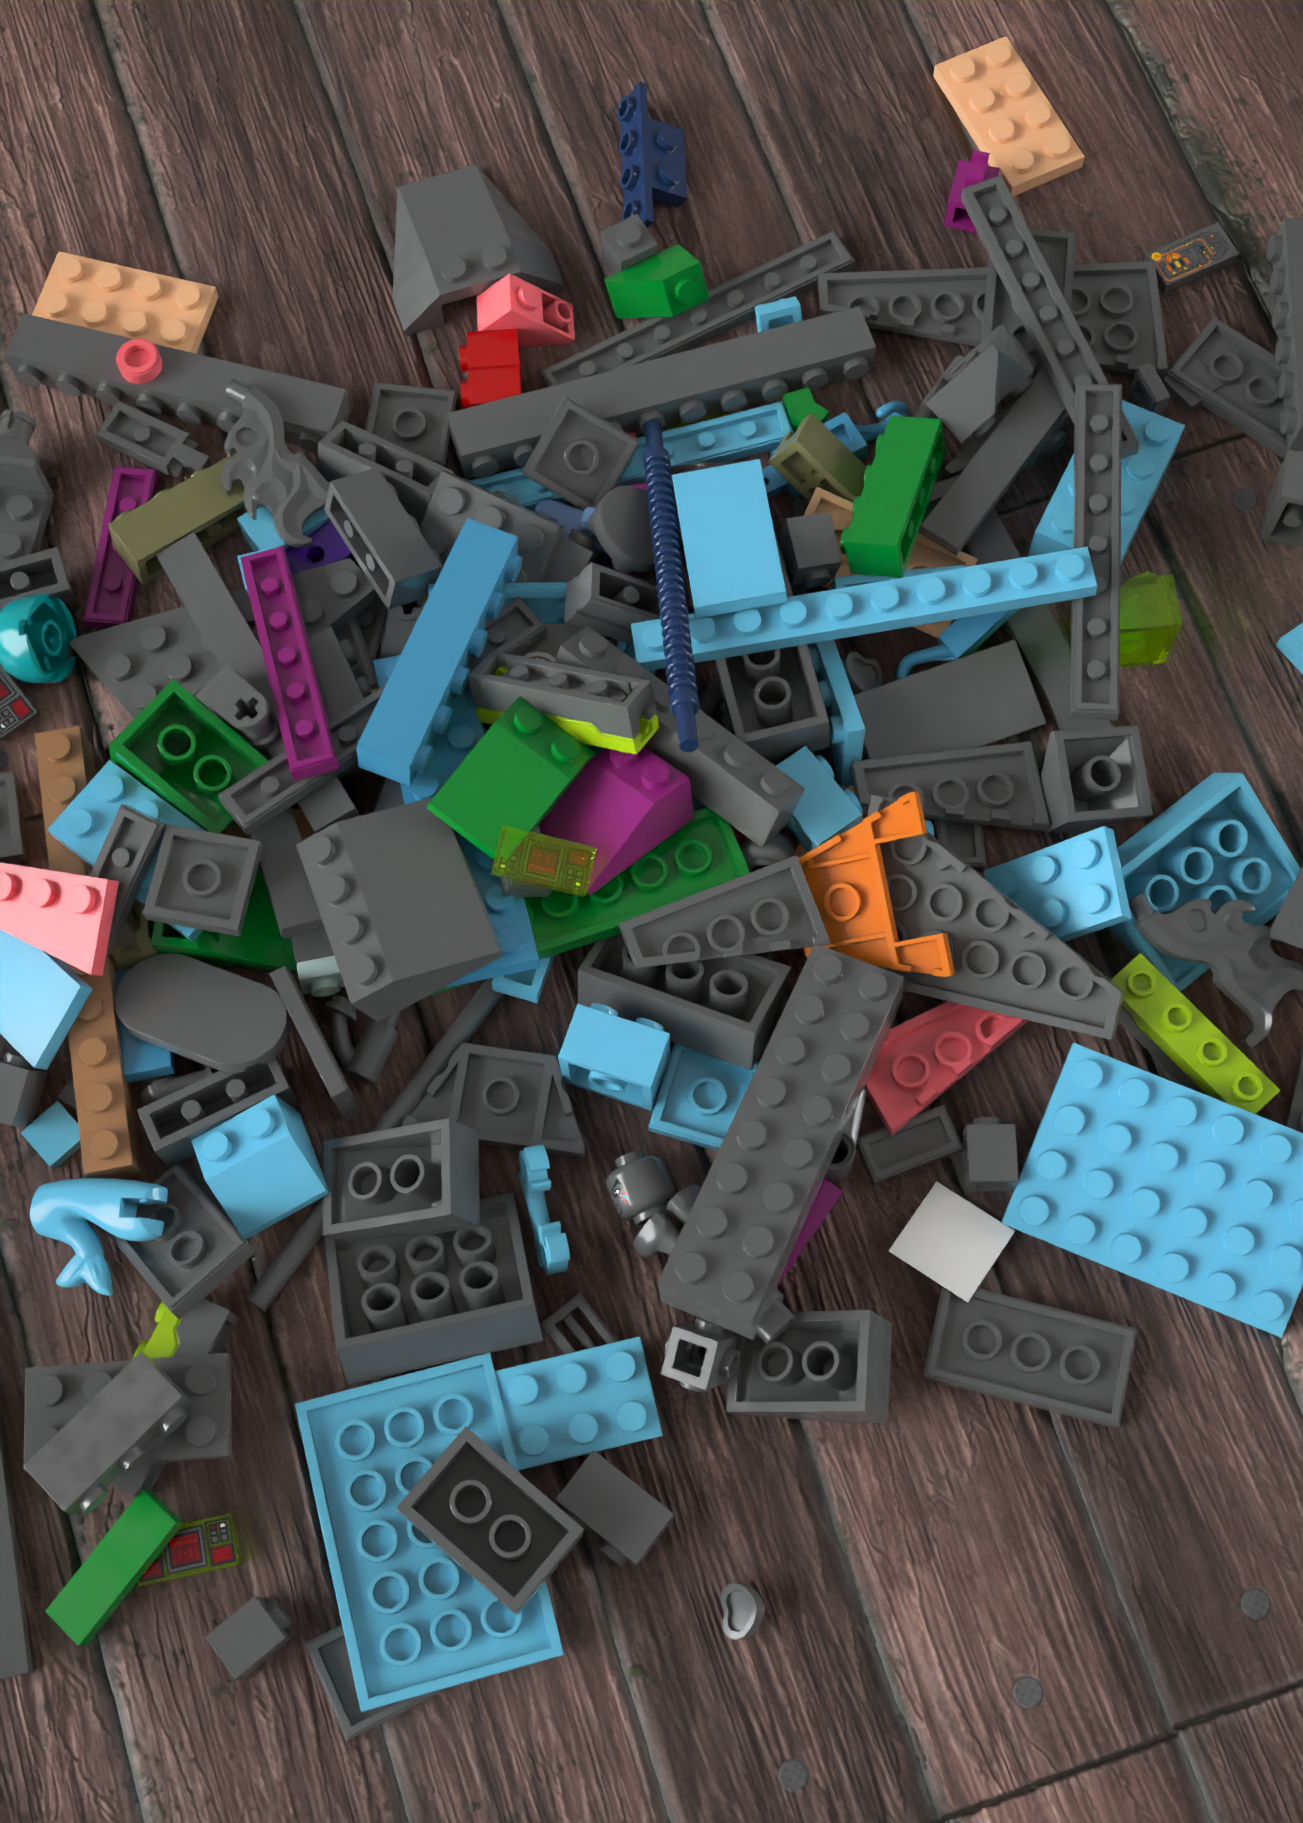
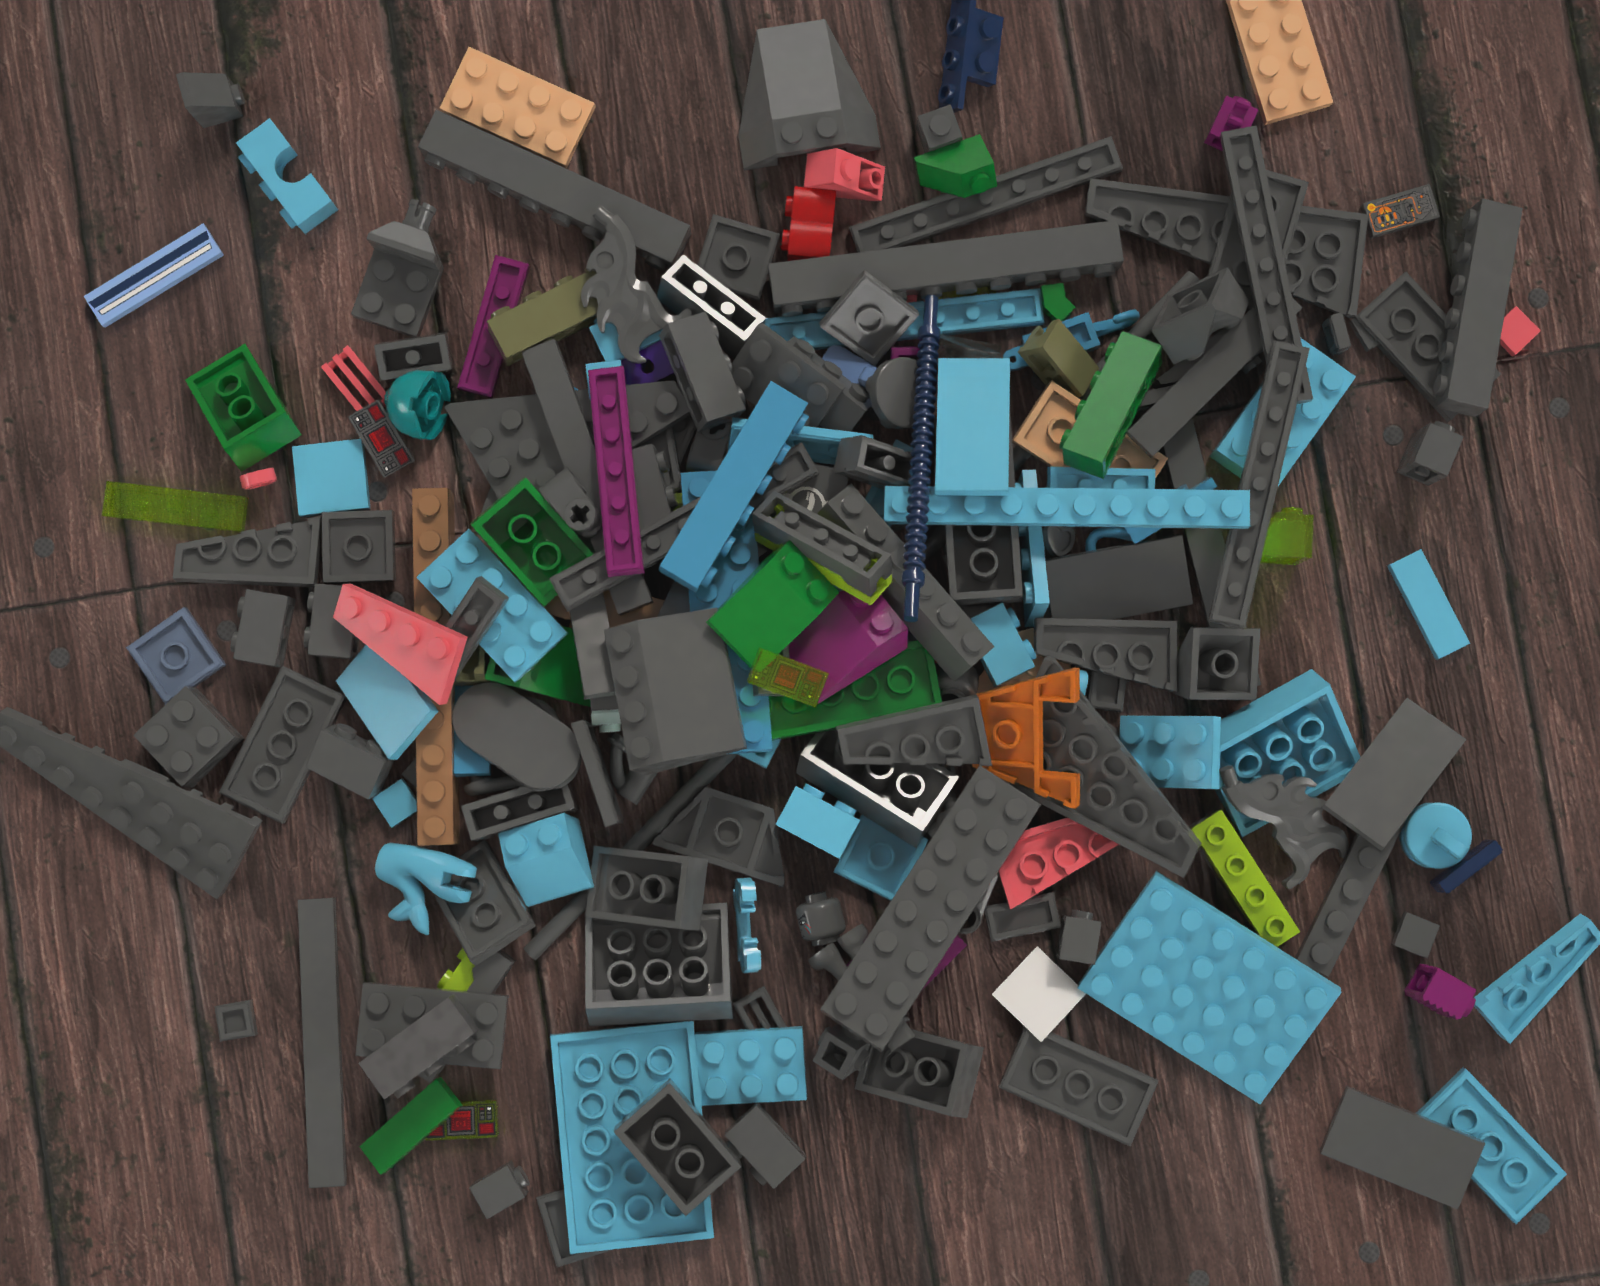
camera: 10 degrees right, 15 degrees up
(139, 361) = (526, 173): coral tile -> none
(151, 441) = (528, 239): dark grey hinge -> none
(203, 880) = (530, 645): dark grey plate -> none
(742, 1610) = (842, 1227): dark grey piece -> none
(778, 313) = (1049, 214): medium azure tile -> none
(810, 549) = (1036, 441): dark grey brick -> none

